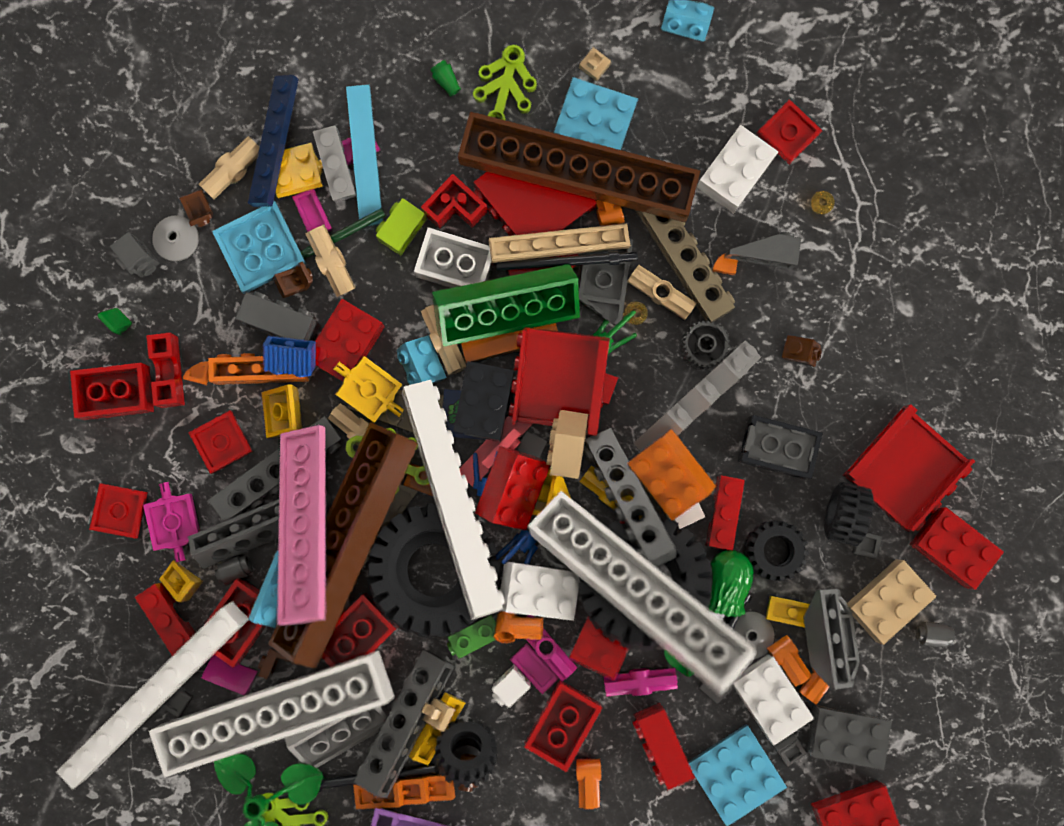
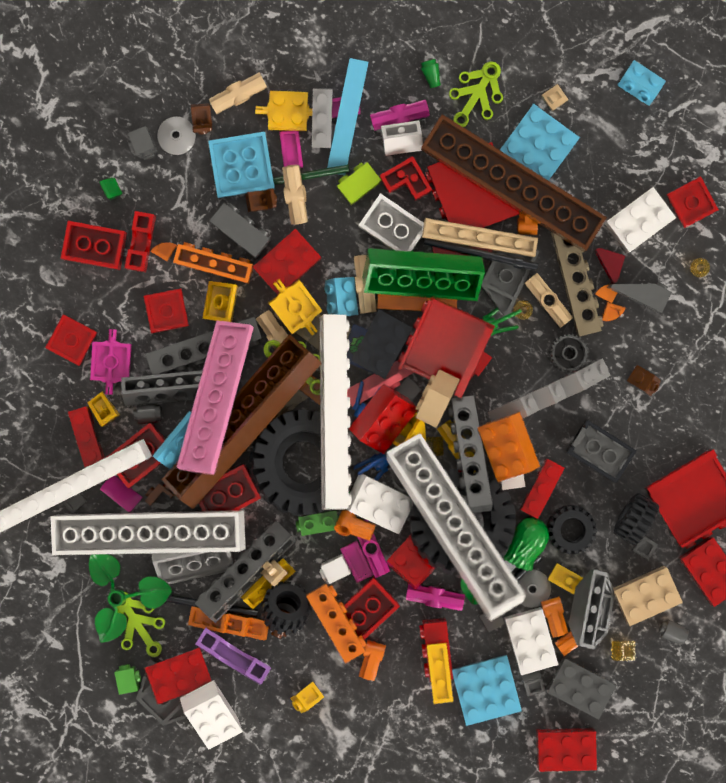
camera: 20 degrees right, 5 degrees up
(273, 141) = (278, 82): dark blue plate -> none
(289, 356) = (242, 263): blue brick -> none
(424, 136) = (400, 114): none -> dark pink piece
(434, 159) = (402, 138): none -> white brick
(532, 753) = (336, 623): none -> orange brick
(584, 500) = (436, 445): none -> clear yellow slope
(677, 776) = (439, 673): none -> yellow plate
(719, 227) = (611, 263): none -> dark red slope
(739, 283) = (612, 312): none -> orange tile
(882, 675) = (623, 650): none -> clear yellow slope

